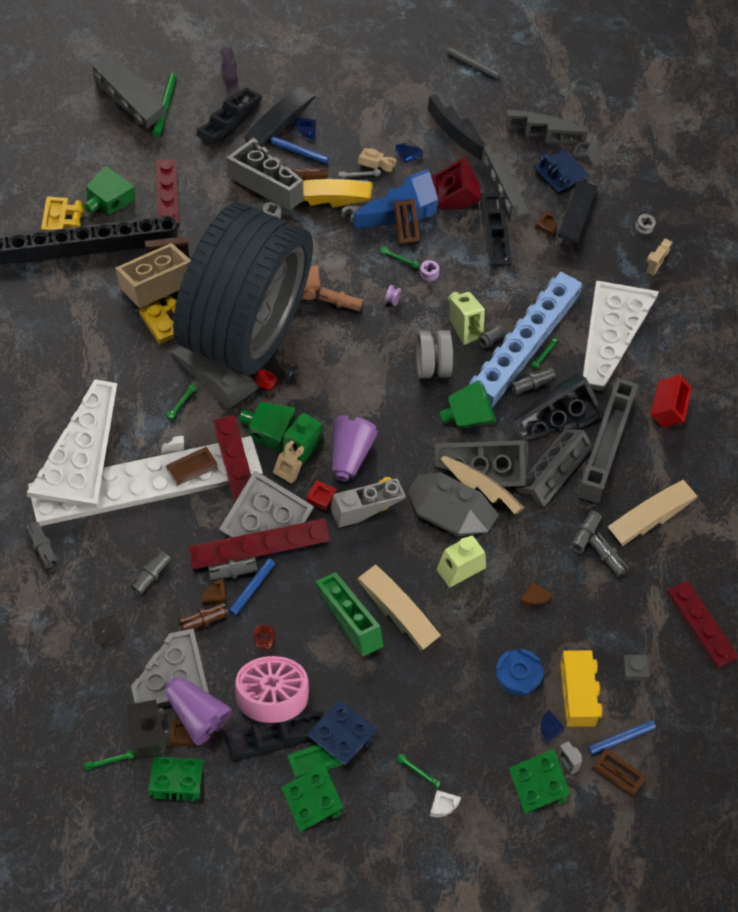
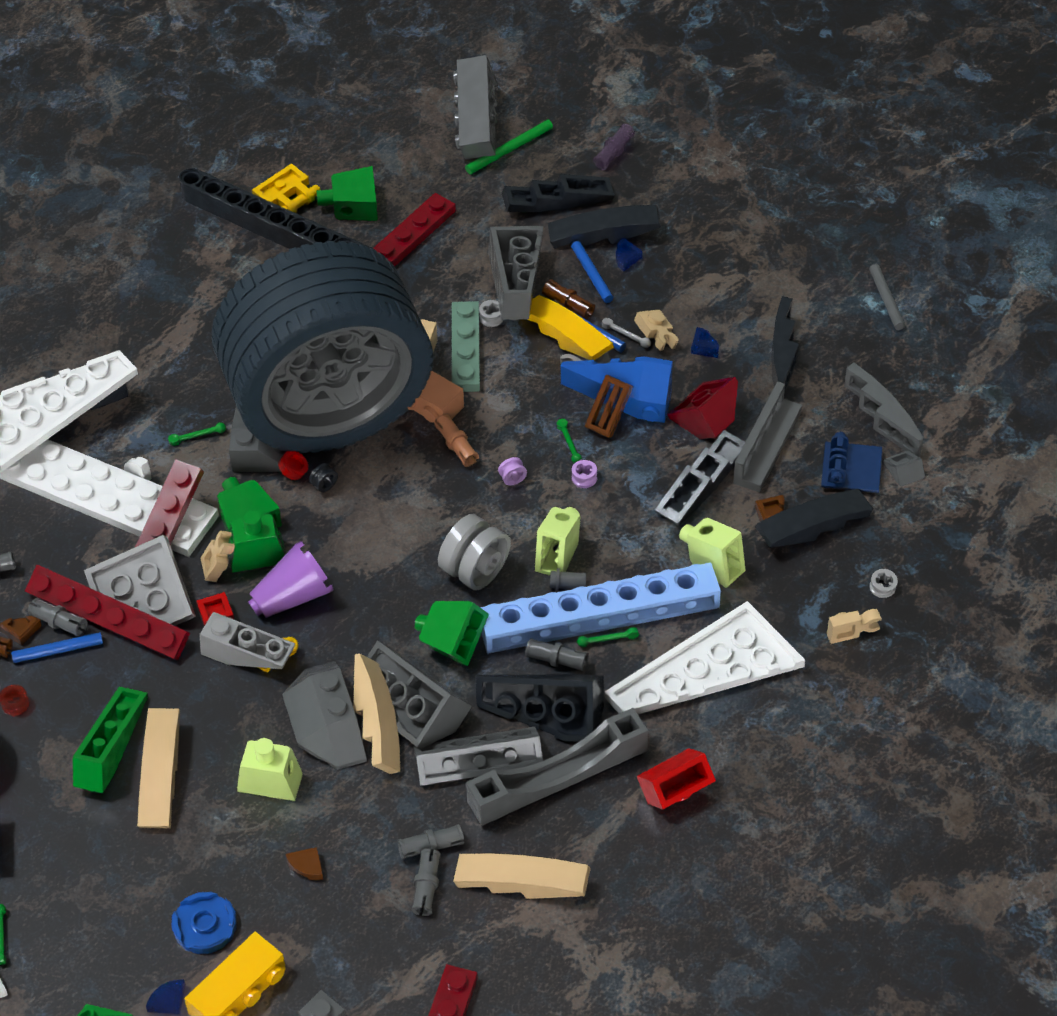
camera: 50 degrees right, 5 degrees down
(191, 466) = (125, 494): reddish brown tile -> none
(549, 261) = (716, 544): none -> yellowish green torso

